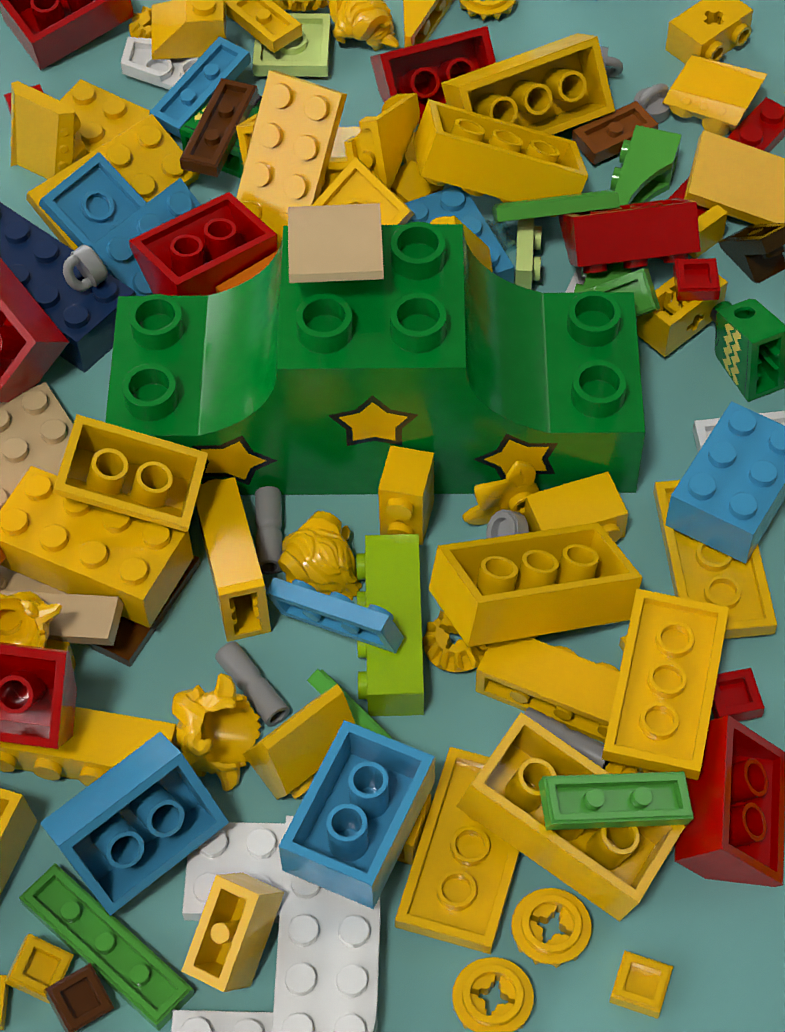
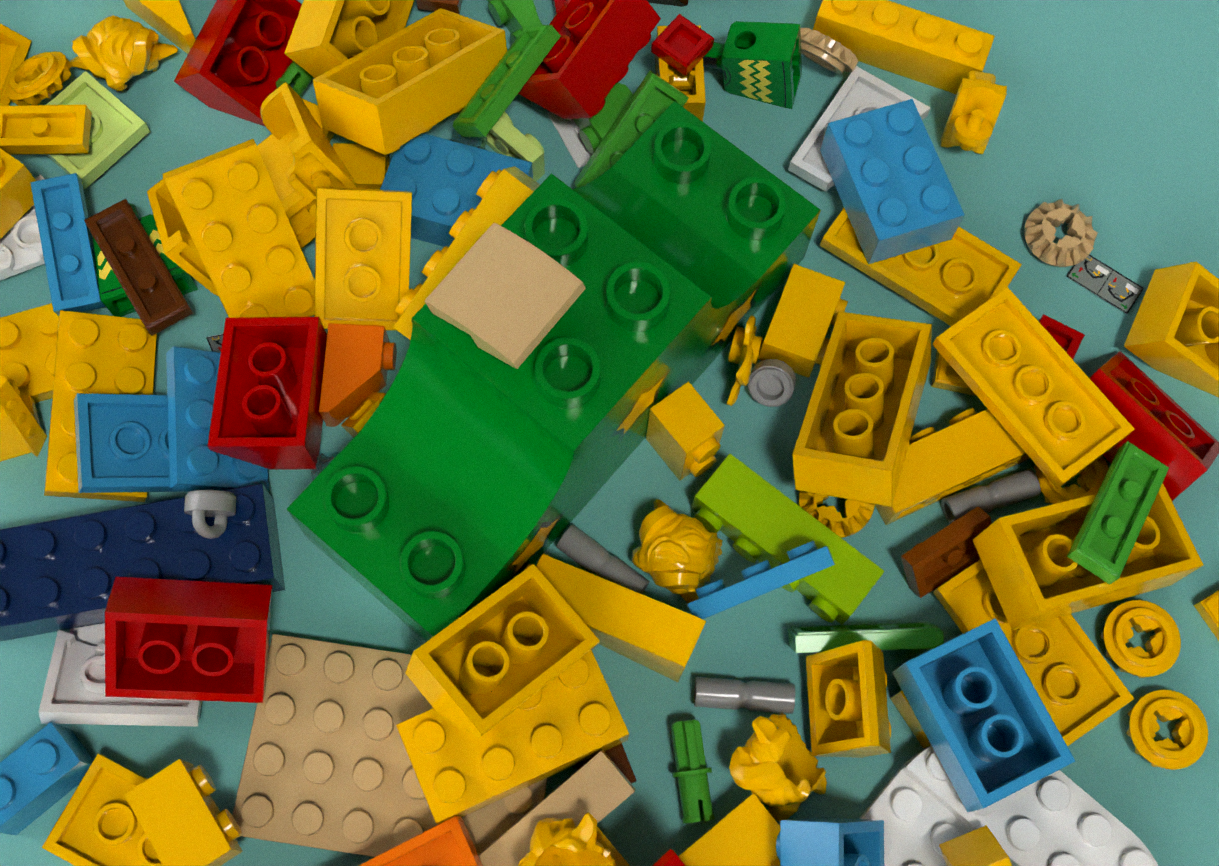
camera: 55 degrees left, 15 degrees up
(165, 685) = (691, 771): none -> bright green axle
(472, 729) = (944, 553): none -> dark orange plate

